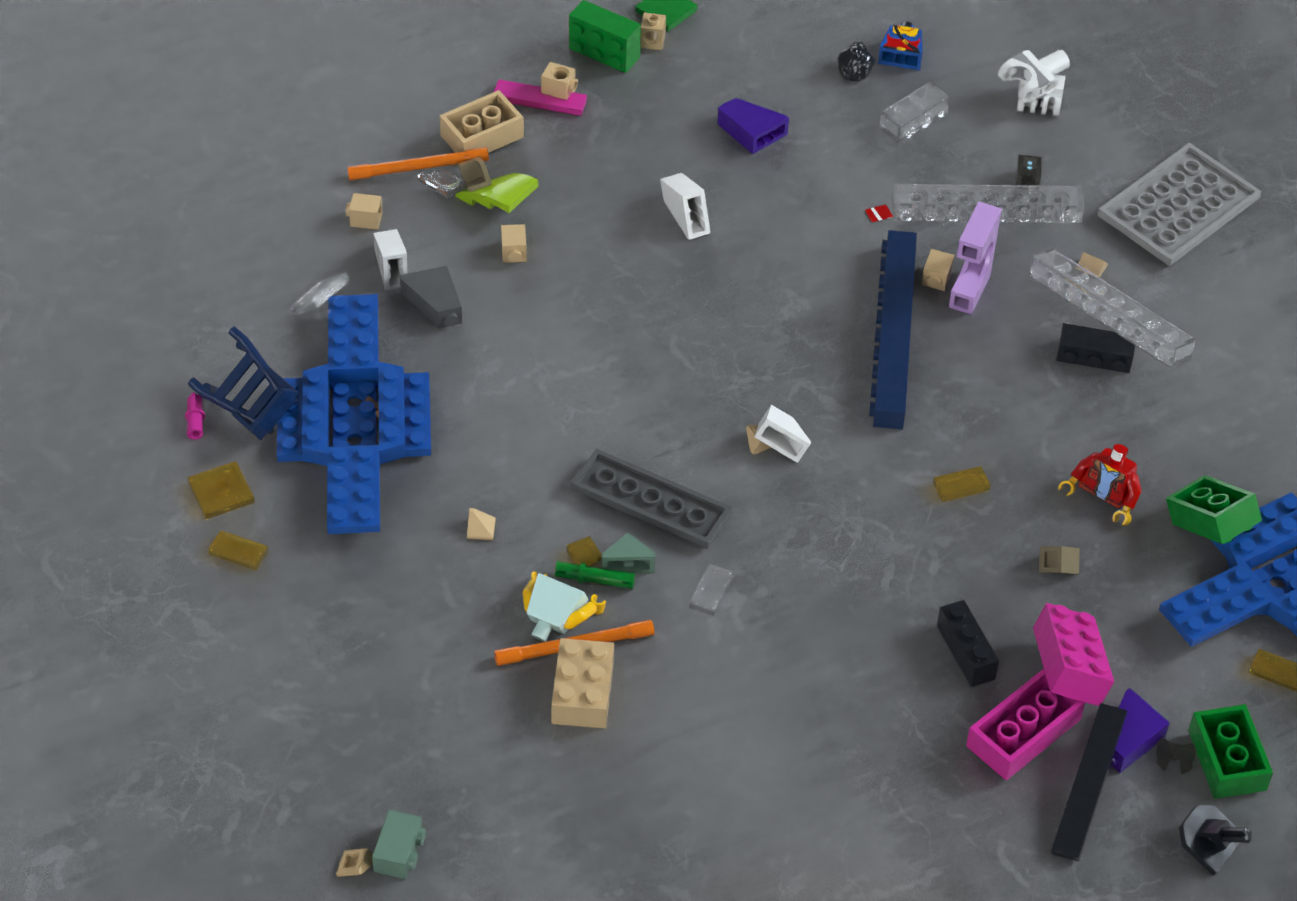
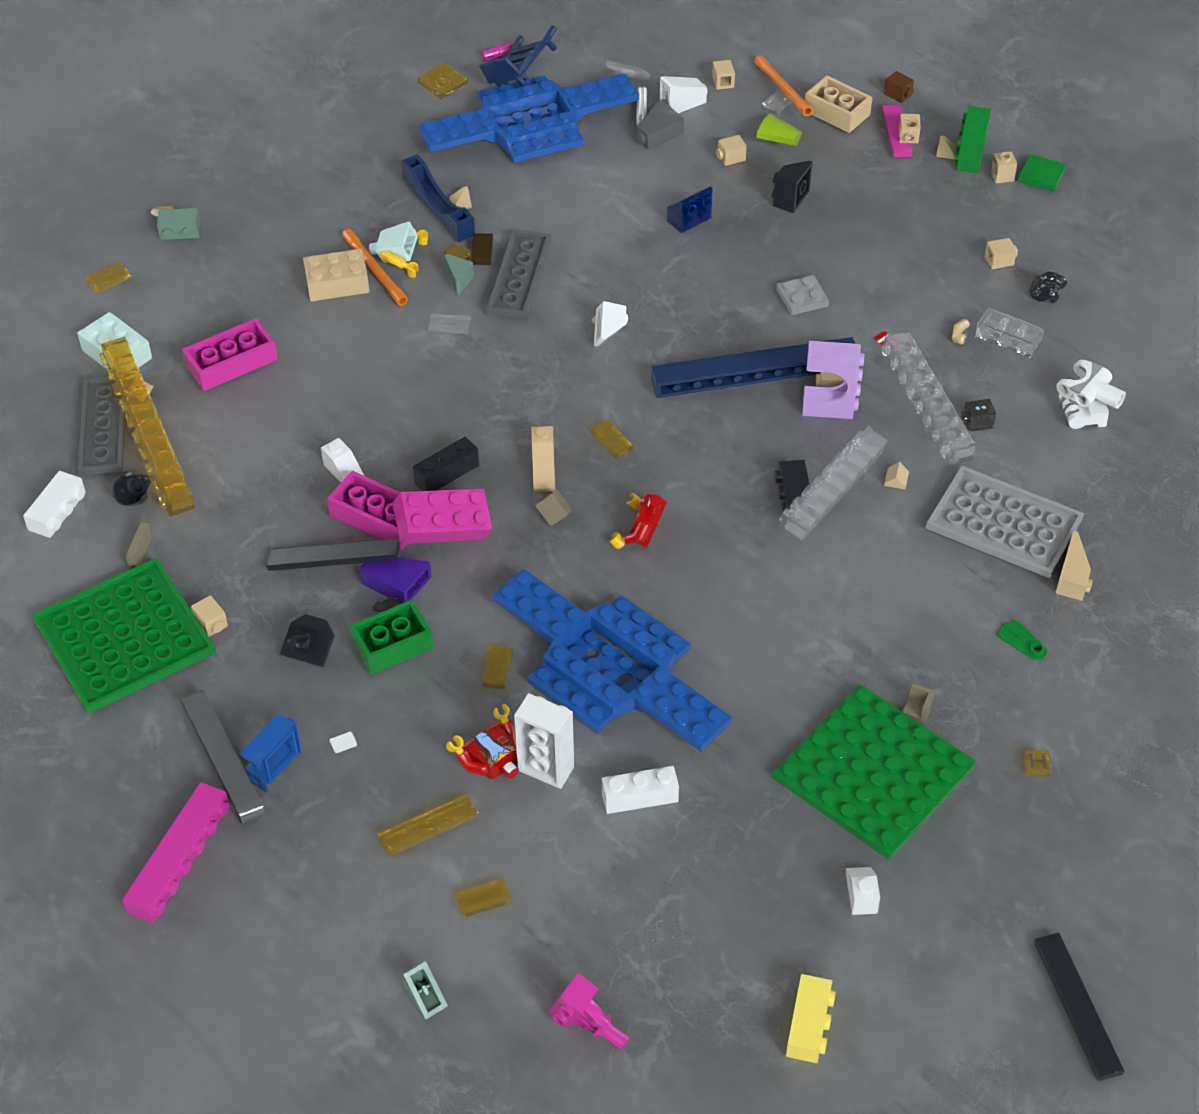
camera: 75 degrees right, 0 degrees up
(238, 550) = (395, 101): clear yellow tile -> none
(393, 307) = (641, 104): none -> white axle
(432, 553) = (454, 218): none -> dark blue arch
(469, 69) = (899, 87): none -> reddish brown brick
(474, 174) = (788, 112): dark tan panel -> none
(584, 524) = (482, 249): none -> dark brown tile
(591, 68) = (946, 148): none -> tan slope
(594, 575) = (436, 257): green pin -> none
(611, 305) = (691, 210): none -> clear blue slope
(613, 205) = (792, 185): none -> black slope
(687, 204) = (820, 224): white slope -> none
(699, 826) = (230, 354): none -> dark pink brick
(752, 124) = (933, 243): dark purple slope -> none
(785, 257) = (802, 295): none -> light grey plate
(789, 79) = (1000, 253): none -> tan brick
(894, 150) = (958, 328): none -> tan arm
(902, 47) = (1086, 310): torso -> none
(928, 747) = (339, 459): none -> white slope
(977, 549) = (543, 459): none -> tan slope
(1214, 509) = (632, 583): green brick -> none
(1262, 173) = (1075, 572): none -> tan slope

